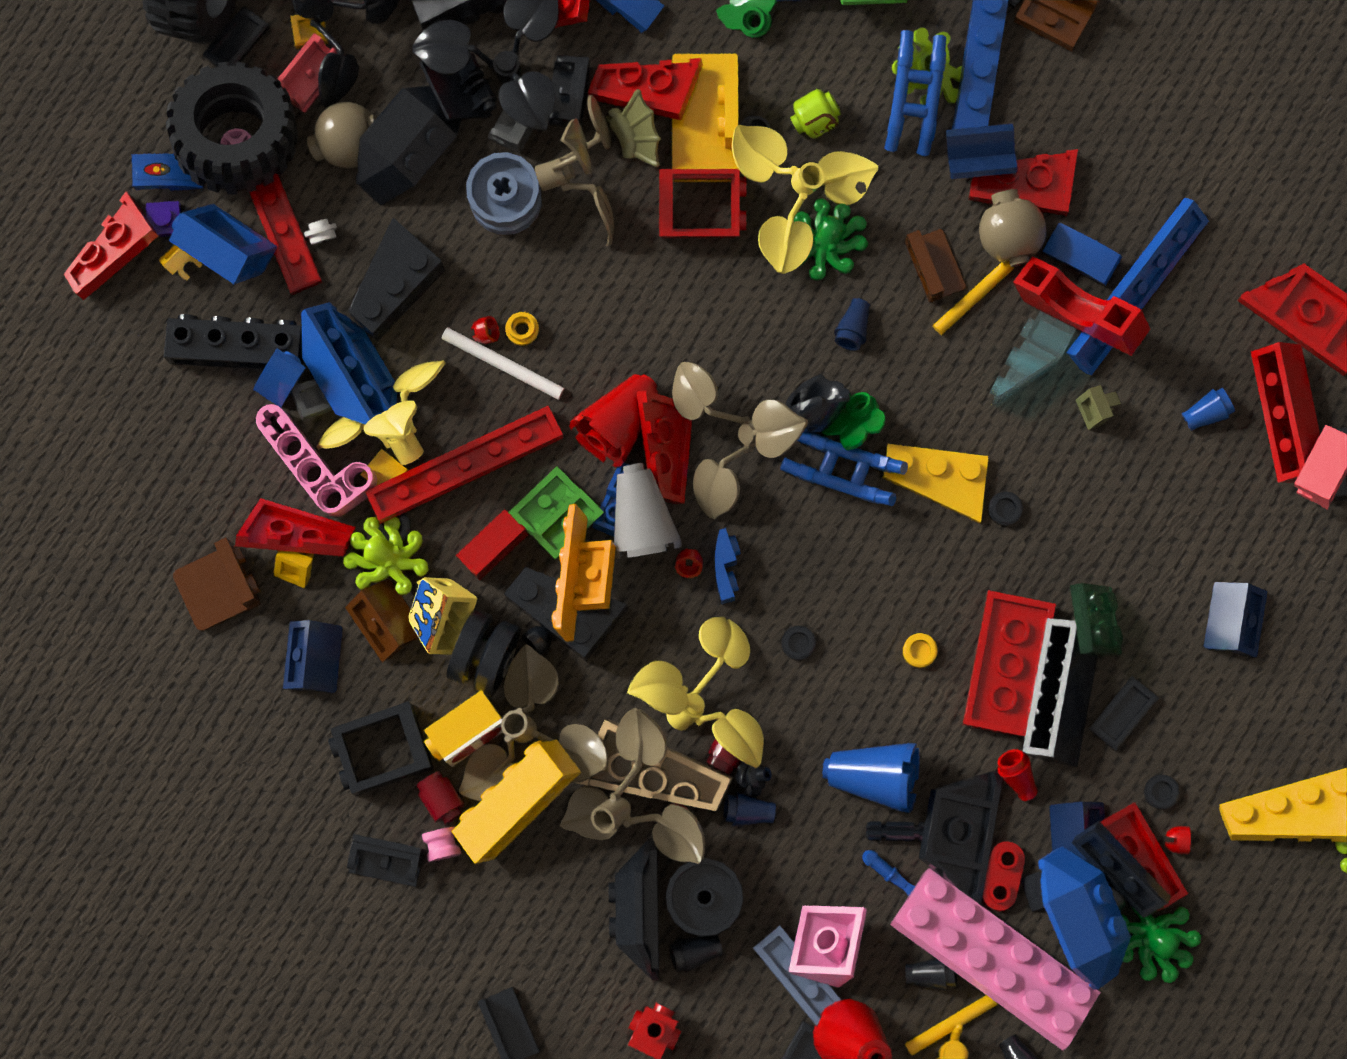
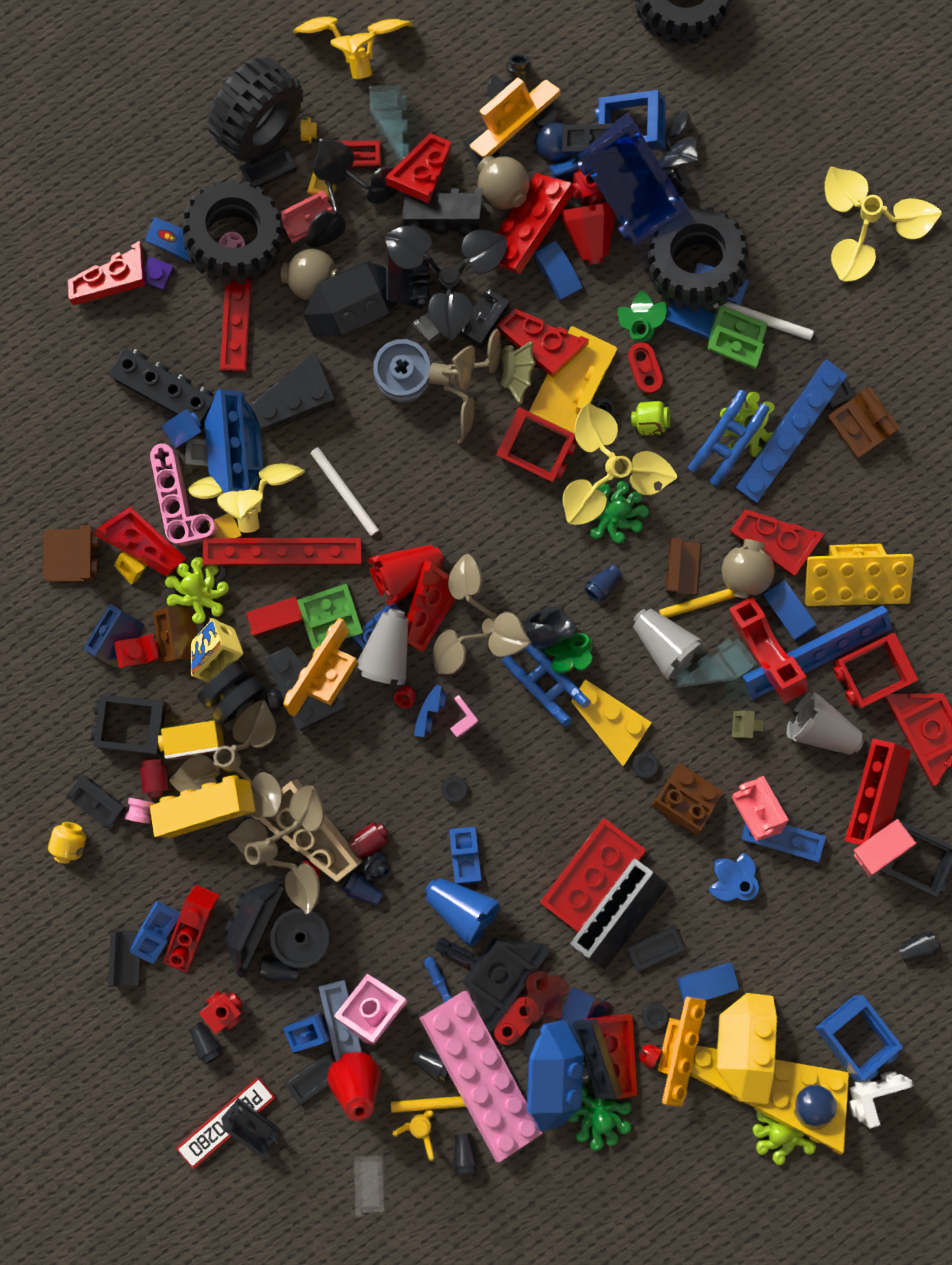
camera: 20 degrees right, 5 degrees up
(175, 260) = (152, 306): yellow tile -> none
(222, 243) = (187, 312): blue window -> none
(320, 231) = (261, 336): white plate -> none
(349, 660) = (136, 651): none -> red bracket
(373, 923) = (67, 842): none -> yellow head
(481, 327) = (339, 461): red hinge -> none
(522, 318) = (369, 464): yellow plate -> none
(527, 979) = (154, 931): none -> blue slope
(568, 954) = (190, 928): none -> red slope
(662, 689) = (338, 782): light yellow plant -> none
(765, 1010) = (307, 1032): none -> blue slope
(777, 549) = (467, 722): none -> bright pink panel
(783, 61) = (645, 368): none -> red plate
(849, 713) = (465, 855): none -> blue slope
(920, 650) = (536, 835): yellow tile -> none
(961, 355) = (667, 642): none -> light grey cone
(981, 151) = (754, 503): dark blue panel -> none
(1017, 772) = (560, 955): red cone -> none
(1026, 832) = (547, 998): none -> clear red plate
(1073, 524) = (687, 799): none -> reddish brown plate
(1096, 619) = (668, 876): clear green plate -> none
(1141, 179) = (858, 576): none -> yellow bracket
(1163, 492) = (760, 809): none -> coral hinge
(1169, 589) = (731, 876): none -> blue plate
(1187, 365) = (823, 726): none -> light grey cone
(1204, 723) = (709, 983): none -> blue slope
(1205, 514) = (792, 841): none -> blue plate
(1210, 409) = (823, 764): blue cone -> none
(1210, 814) = (679, 1050): none -> light orange bracket
(1233, 250) = (898, 659): none -> red window
(1235, 618) = (767, 920): panel -> none
(1289, 772) = (748, 1047): none -> yellow wedge

